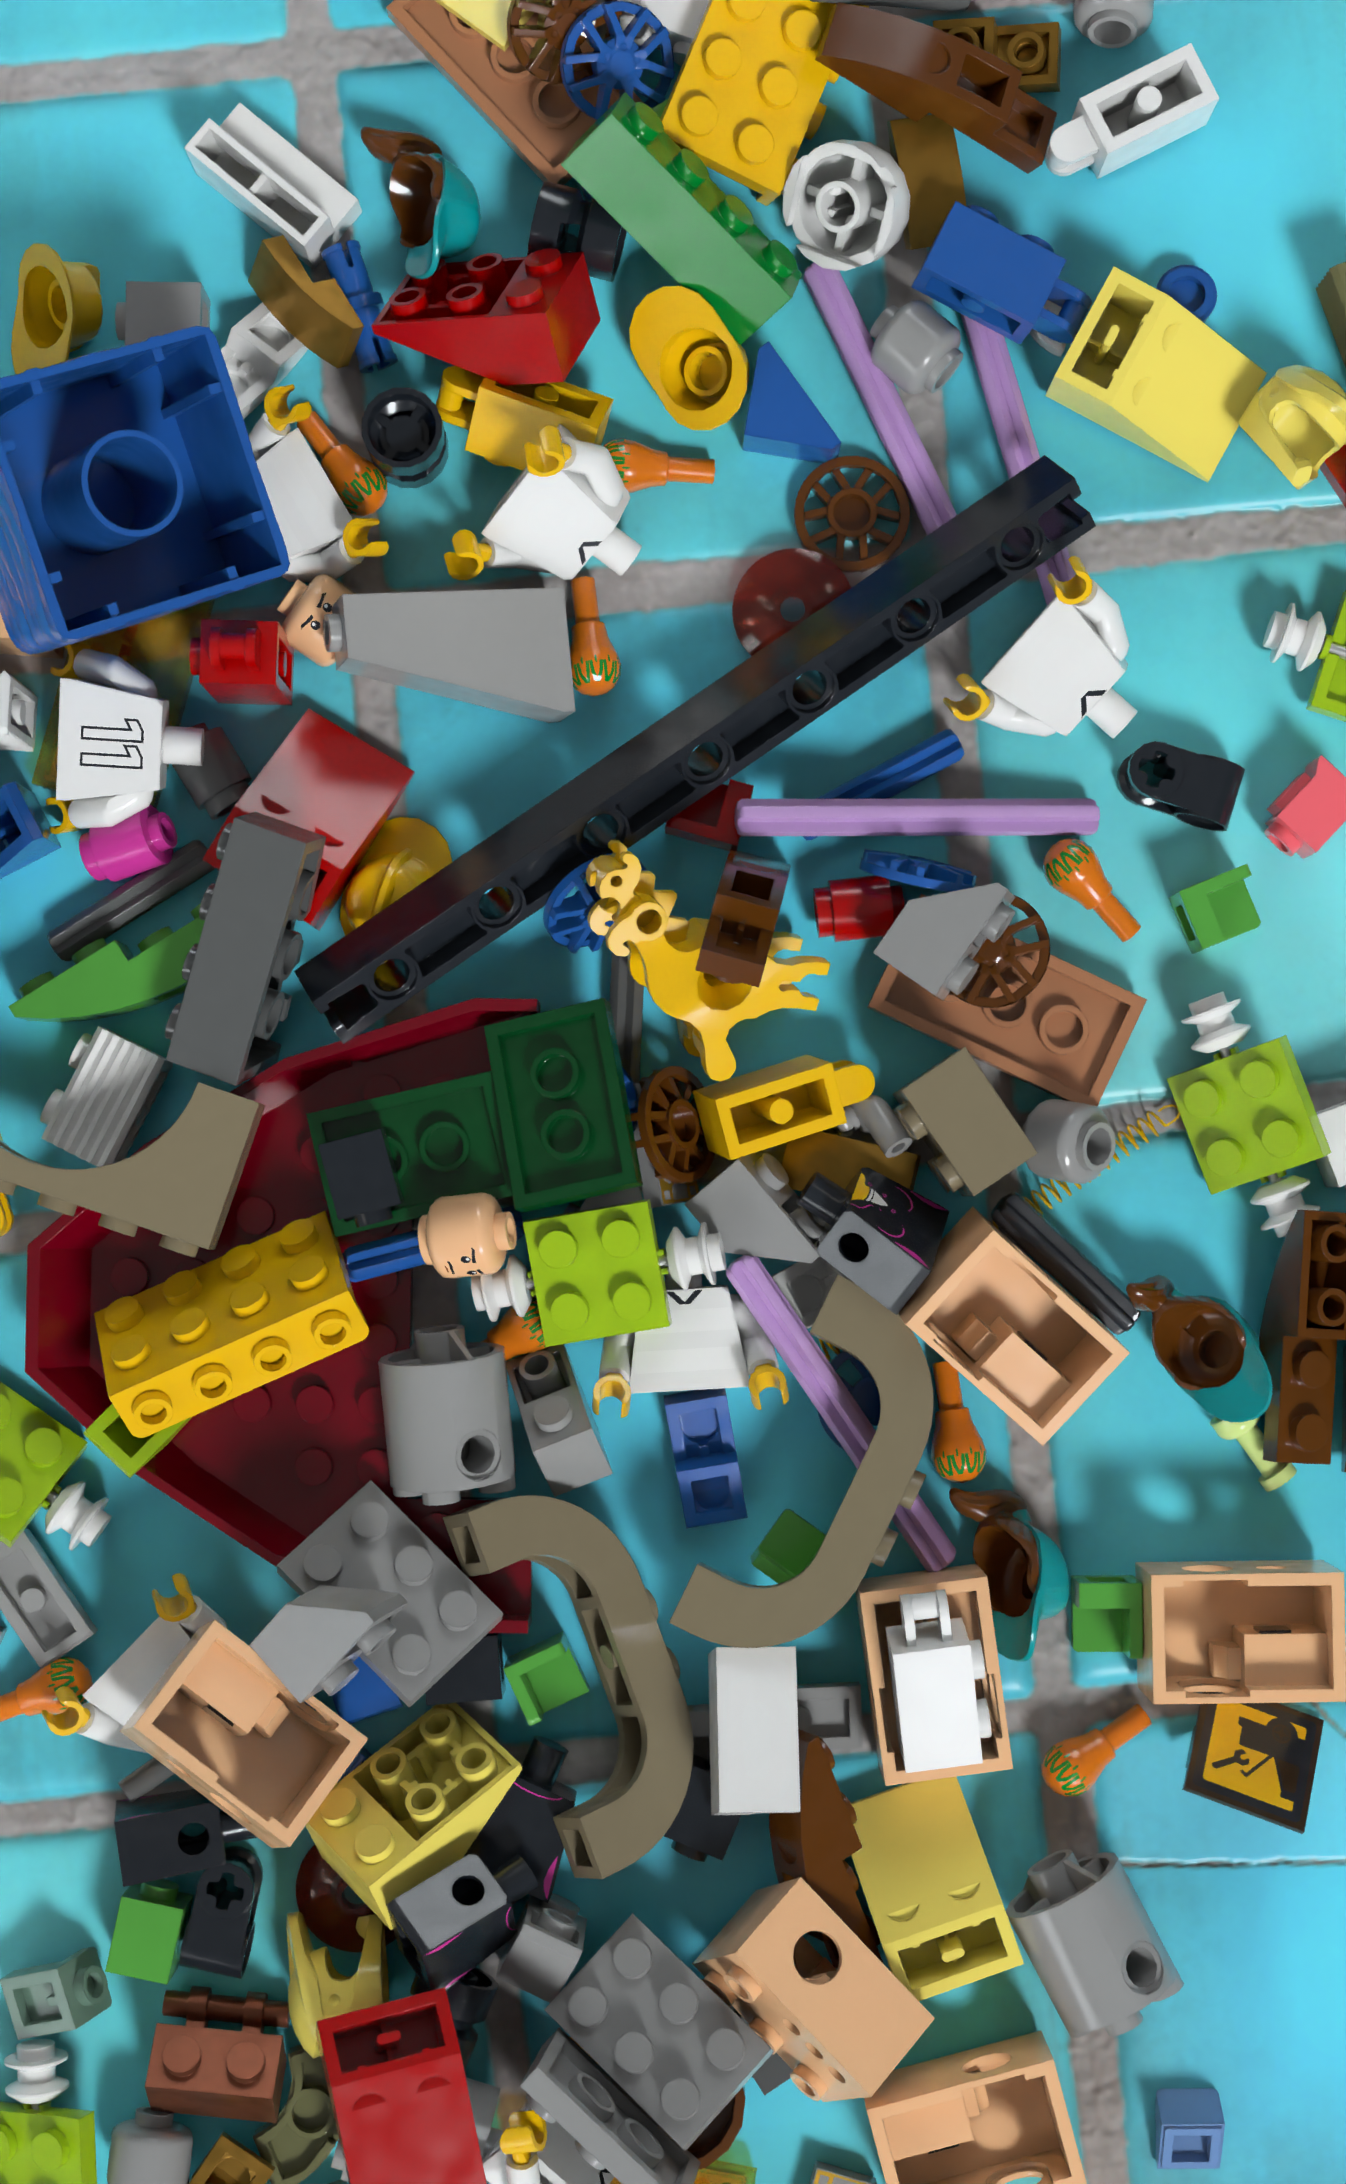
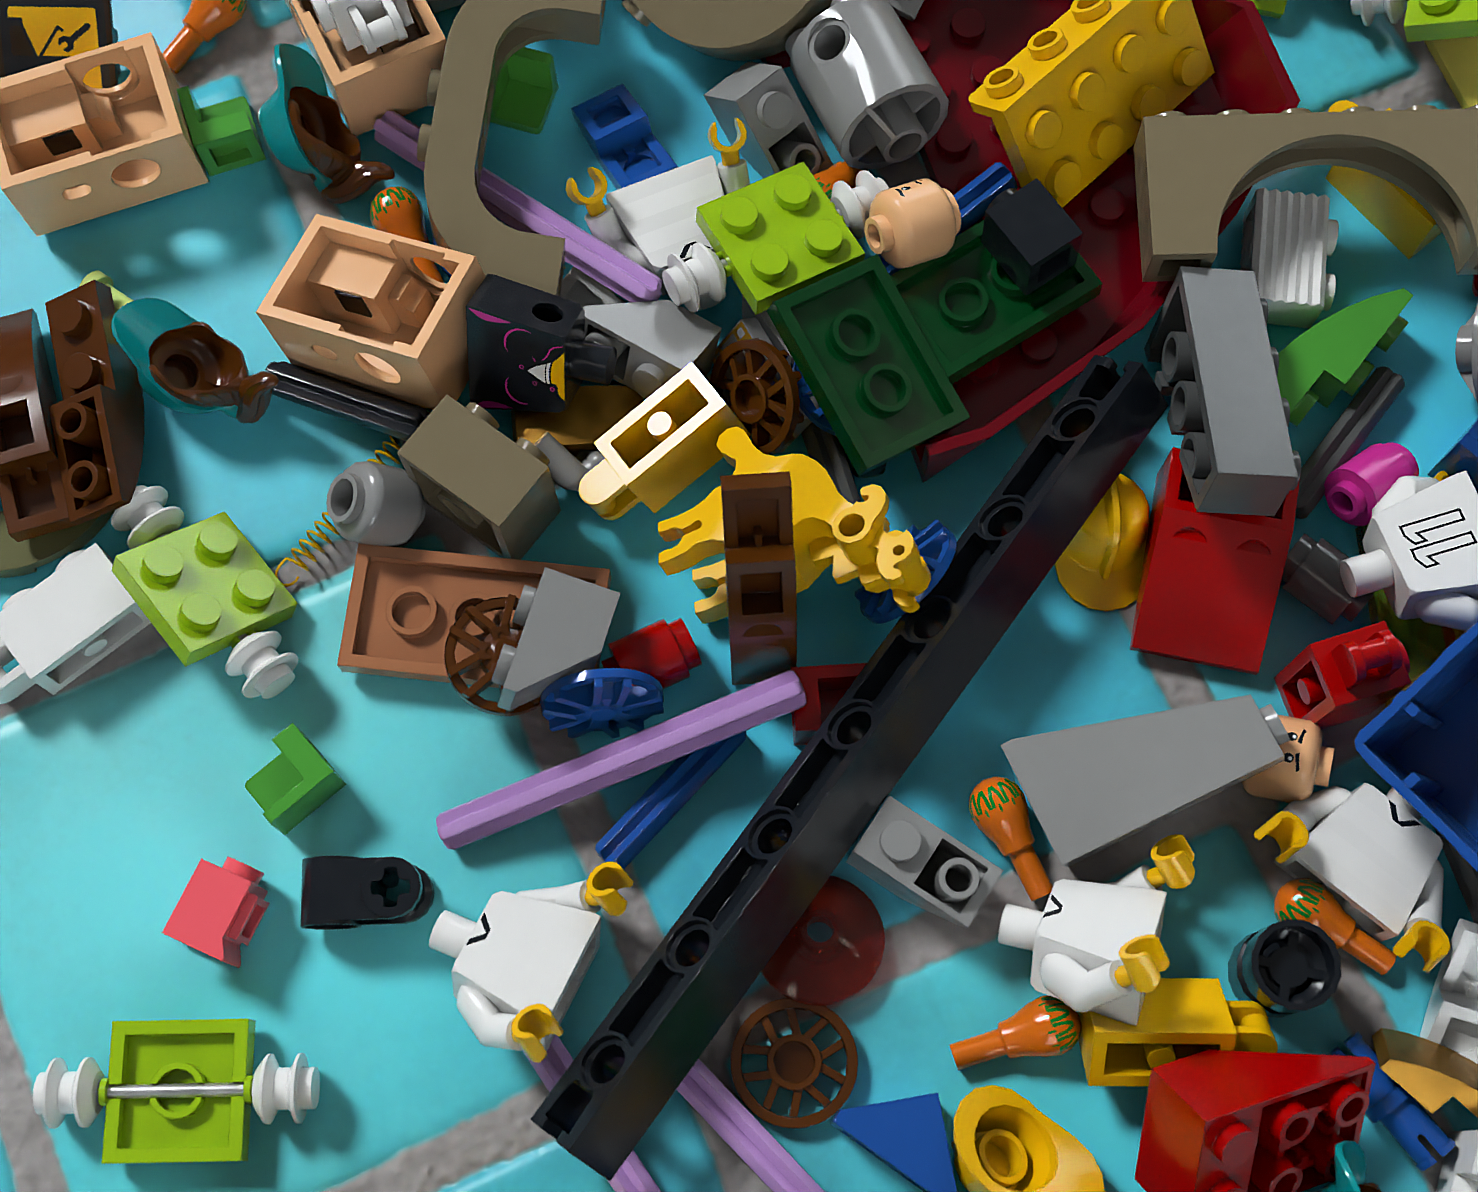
camera: 160 degrees right, 15 degrees down
(679, 630) = (924, 864): none -> light grey slope
(1077, 873) = (442, 767): orange piece -> none

